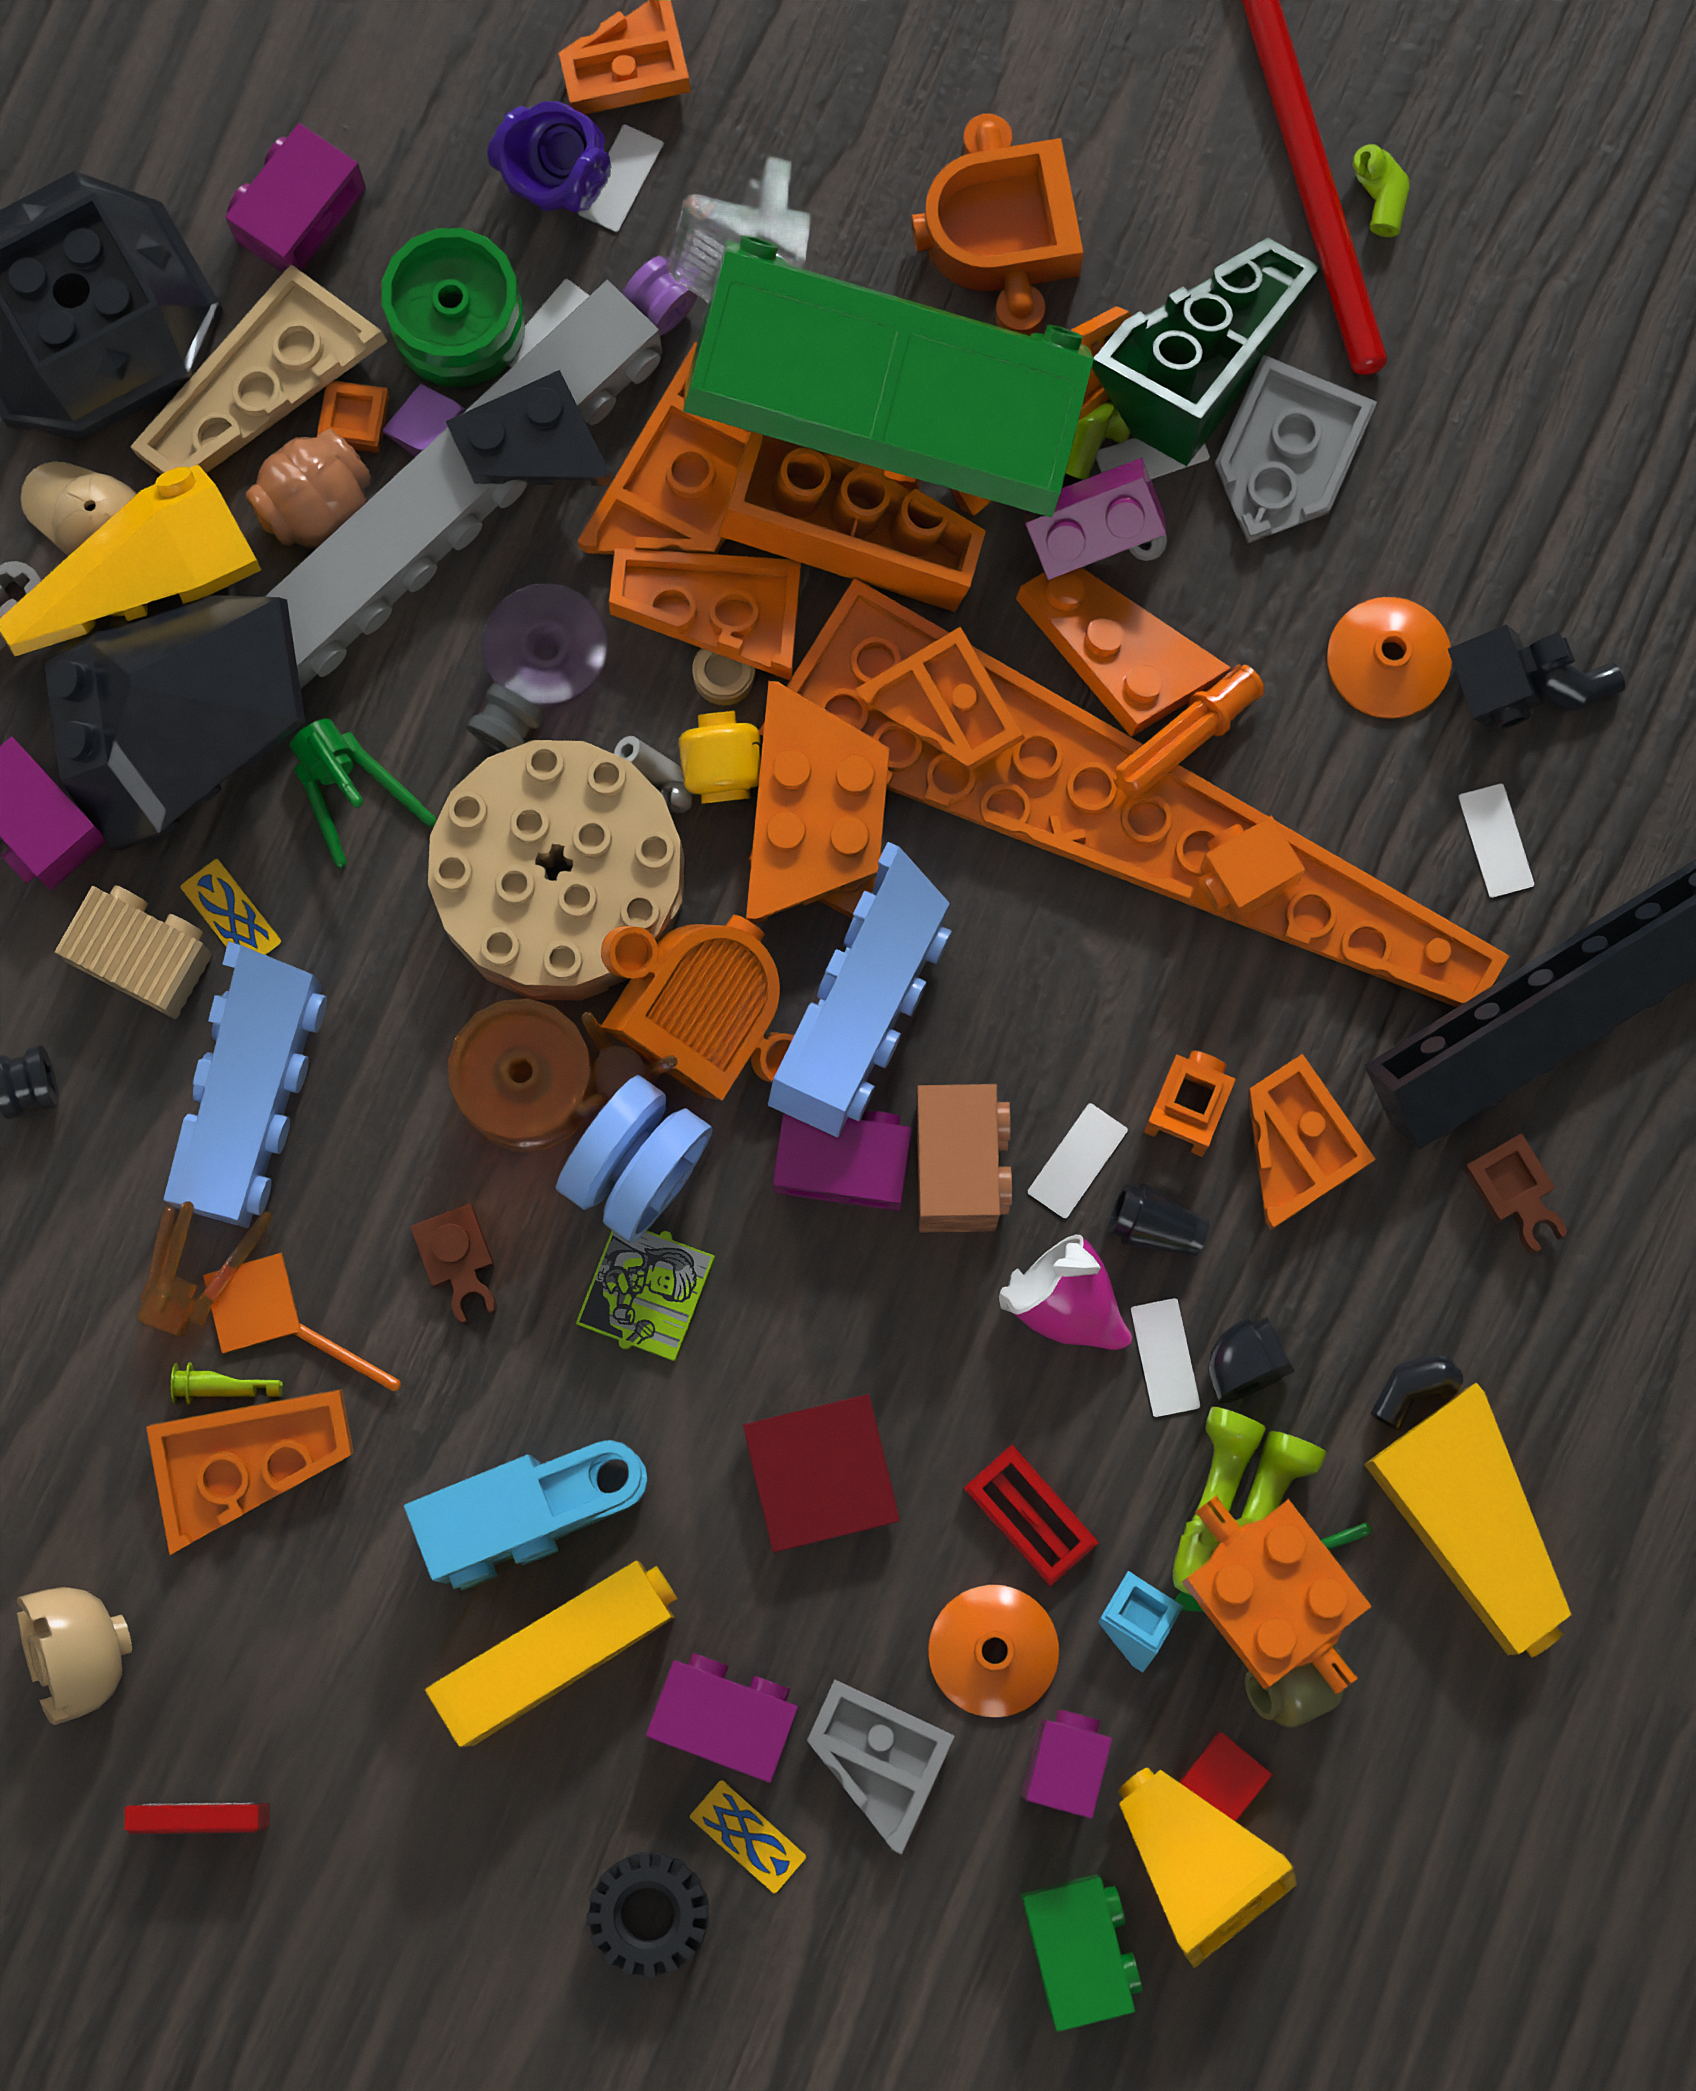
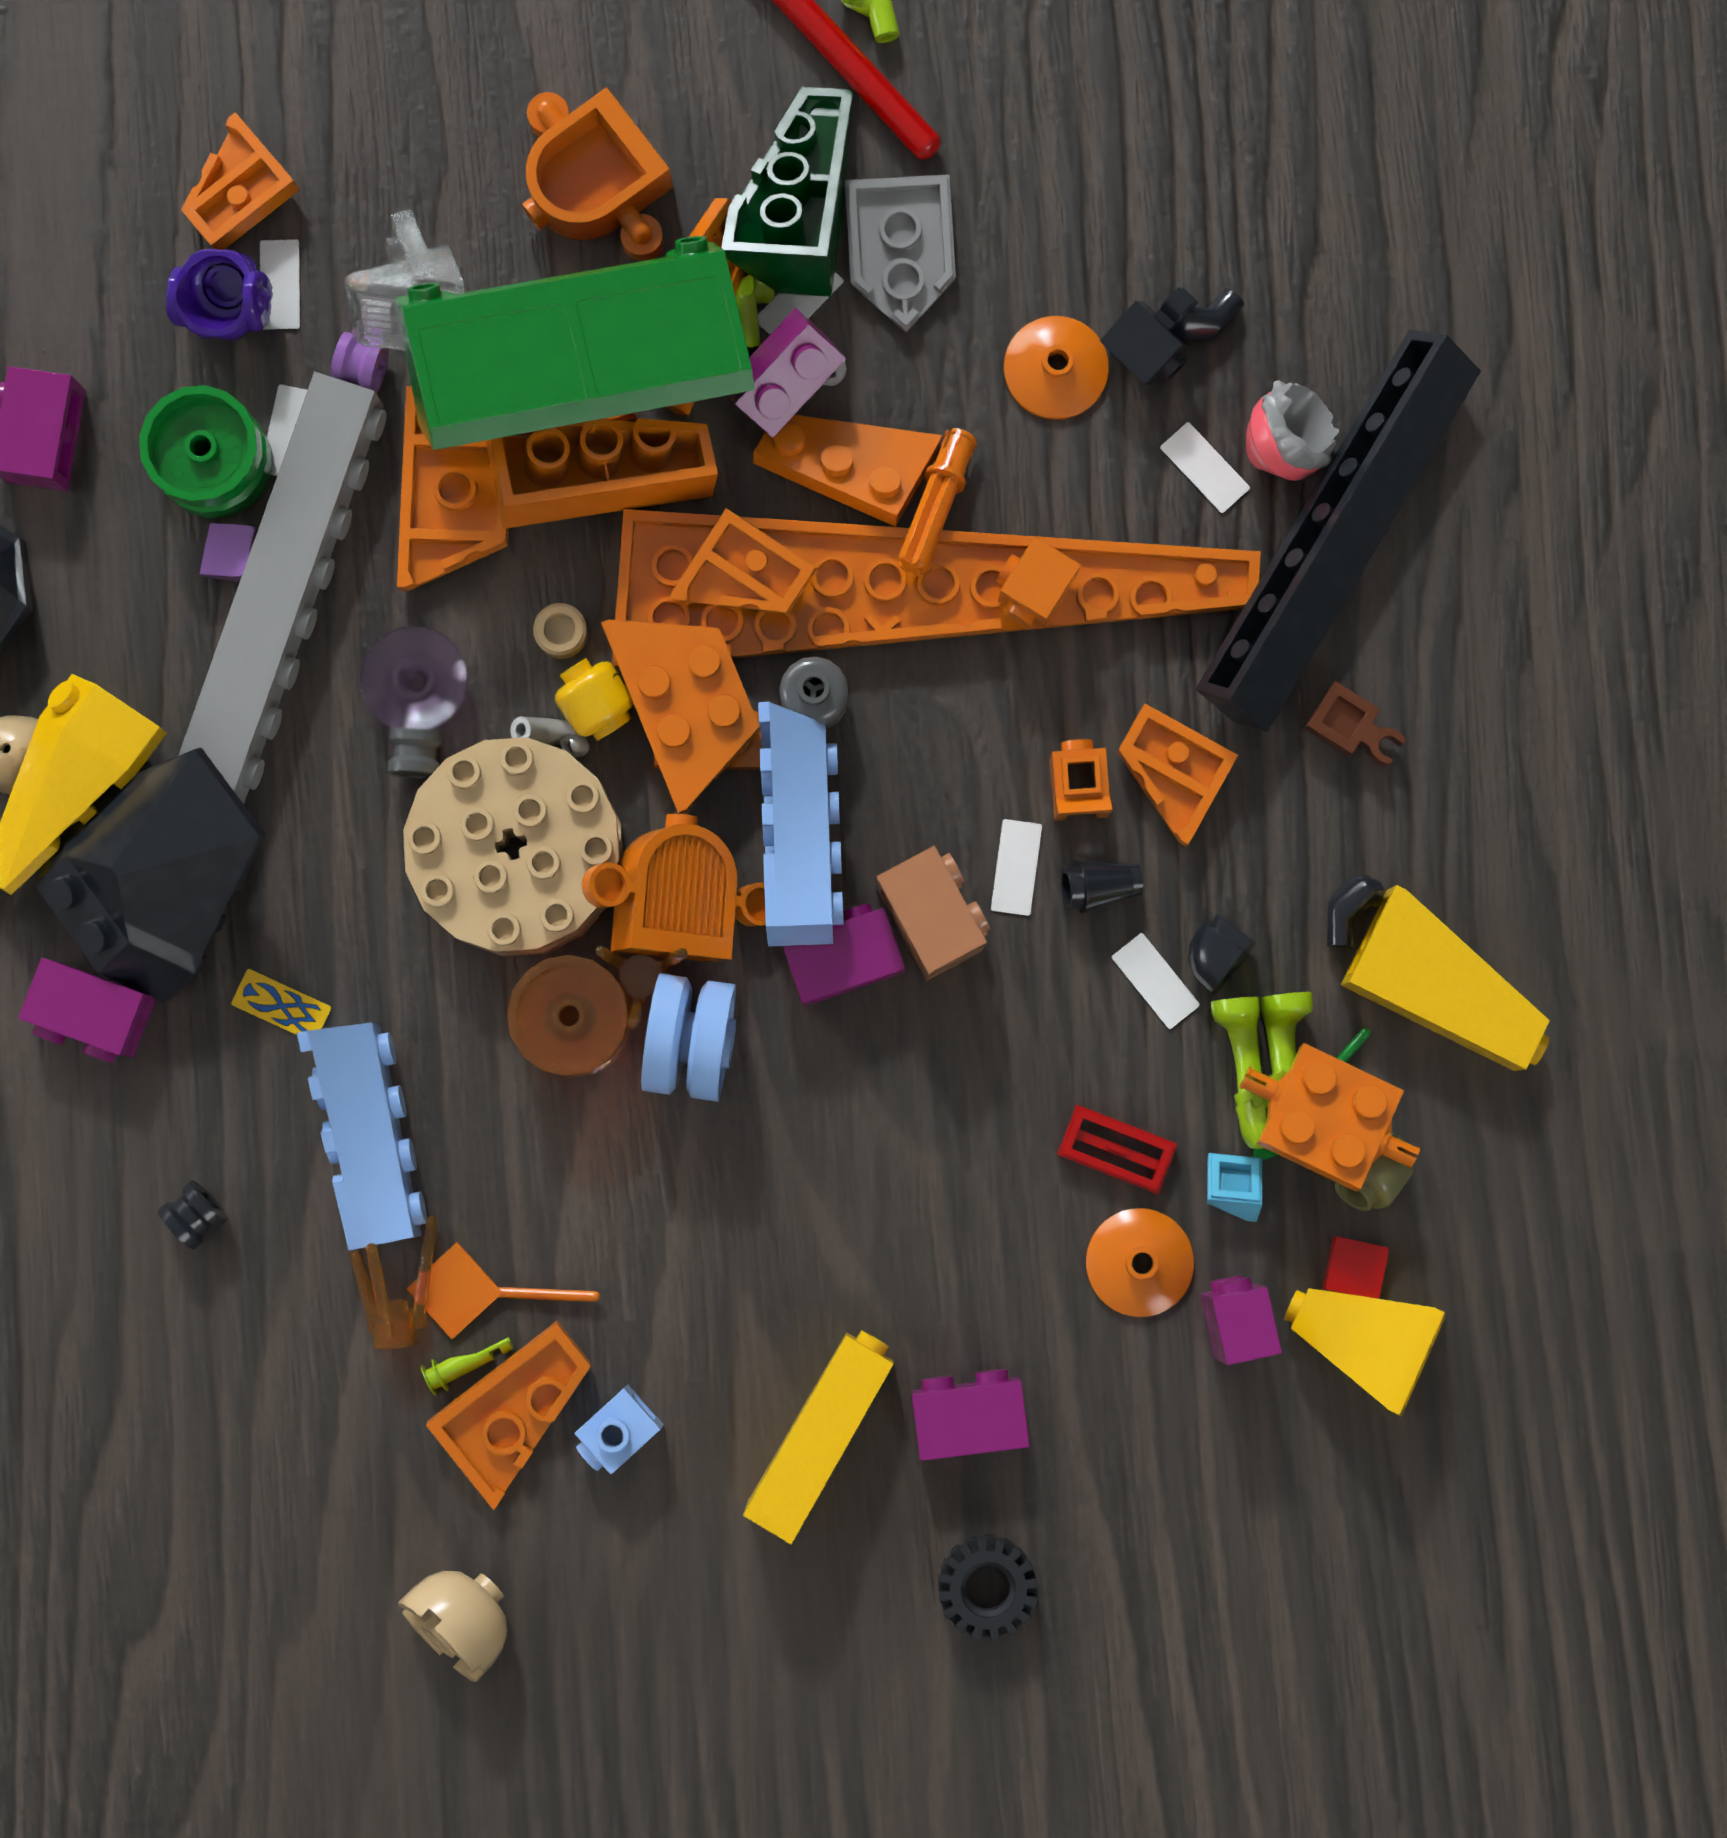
camera: 30 degrees left, 5 degrees up
(135, 950) = (224, 1071): tan brick -> none
(196, 1818) = (617, 1692): red tile -> none
(261, 372) = (82, 574): tan wing -> none
(309, 489) = (169, 649): nougat hair -> none
(327, 758) = (292, 849): green plant -> none
(343, 1538) = (617, 1431): none -> light blue brick
(355, 414) = (171, 574): orange tile -> none
(454, 1253) = (588, 1174): copper plate -> none
(518, 1512) = (738, 1347): medium azure brick -> none
(529, 437) = (319, 525): black wing -> none
(646, 1292) = (746, 1130): piece -> none
(713, 601) = (525, 581): orange wing -> none
(748, 1836) = (1029, 1491): yellow sticker -> none
(821, 1473) = (947, 1198): dark red tile -> none
(879, 1758) = (1098, 1384): light grey wing -> none
(966, 849) = (826, 676): none -> dark grey head
(1068, 1297) = (1062, 974): dark pink hat -> none
(1080, 1952) = (1315, 1450): green brick -> none
(1606, 846) = (1290, 432): none -> light grey hair

